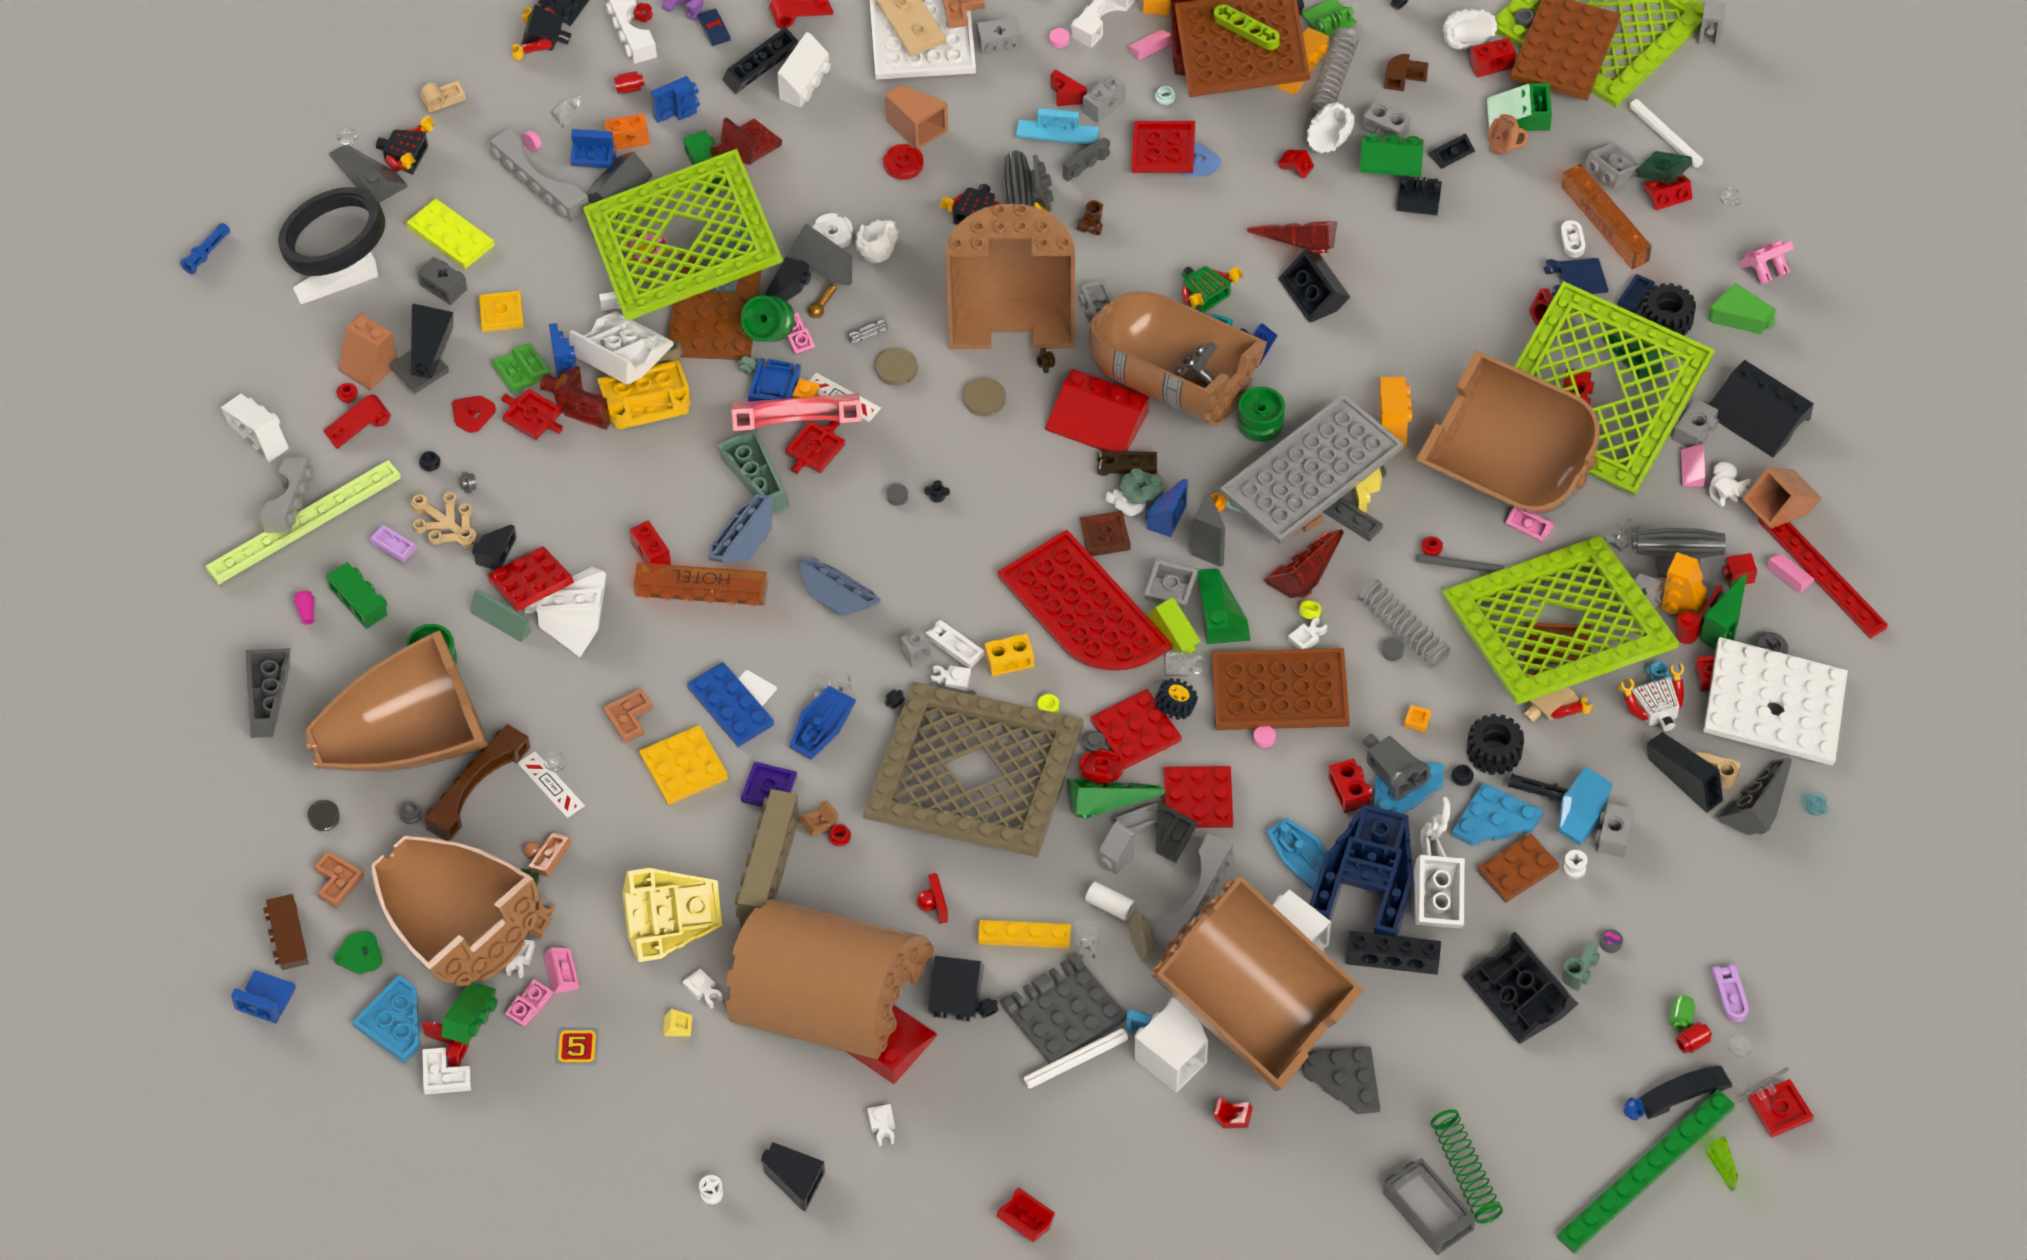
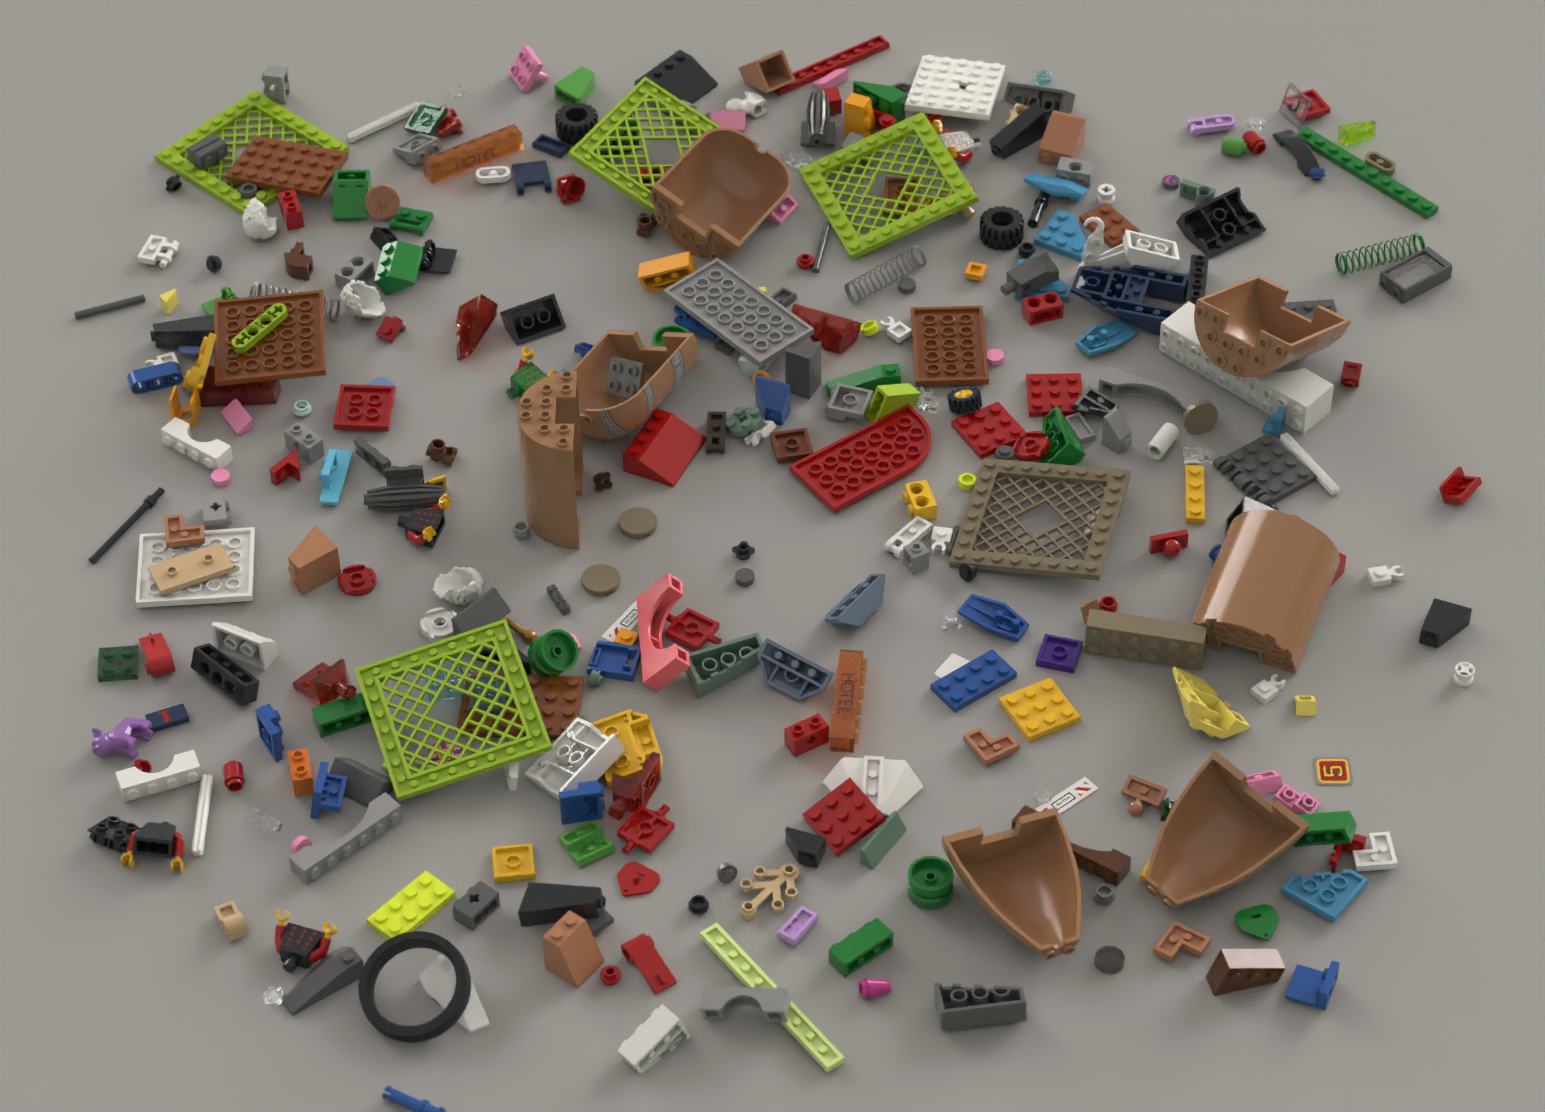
camera: 90 degrees left, 10 degrees down
(545, 65) = (202, 815): none -> white axle
(1493, 173) = (411, 220): none -> green plate
(1659, 1188) = (1380, 162): none -> dark tan plate
(1669, 814) = (1062, 137): none -> nougat slope

